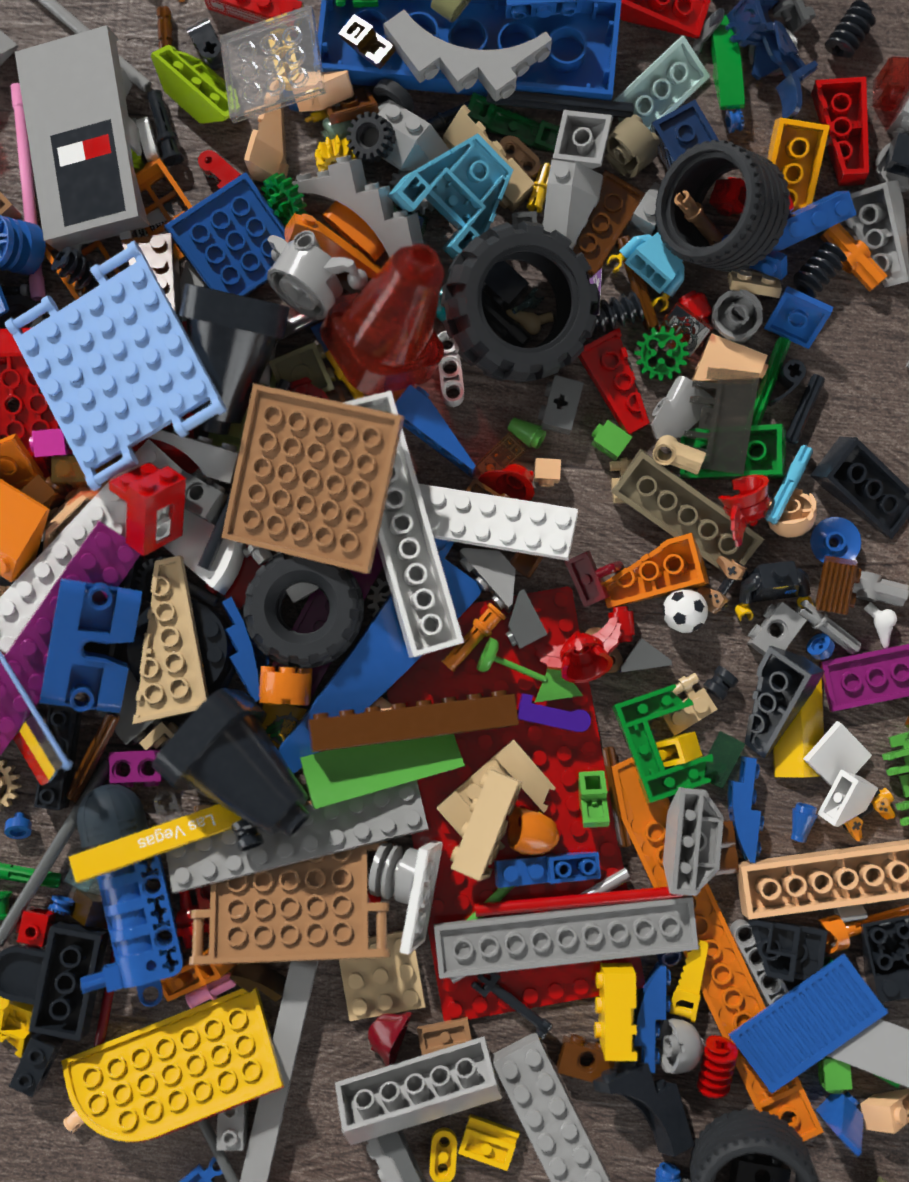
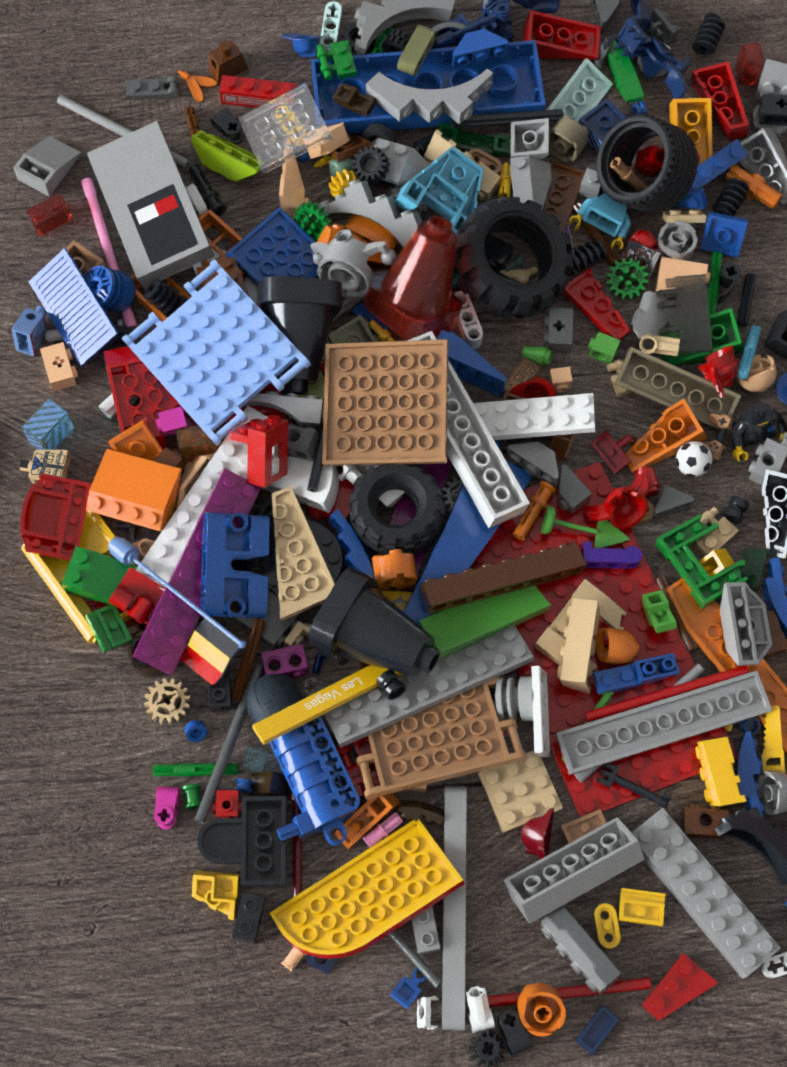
camera: 15 degrees left, 15 degrees down
(216, 168) = (254, 210): red leg -> none

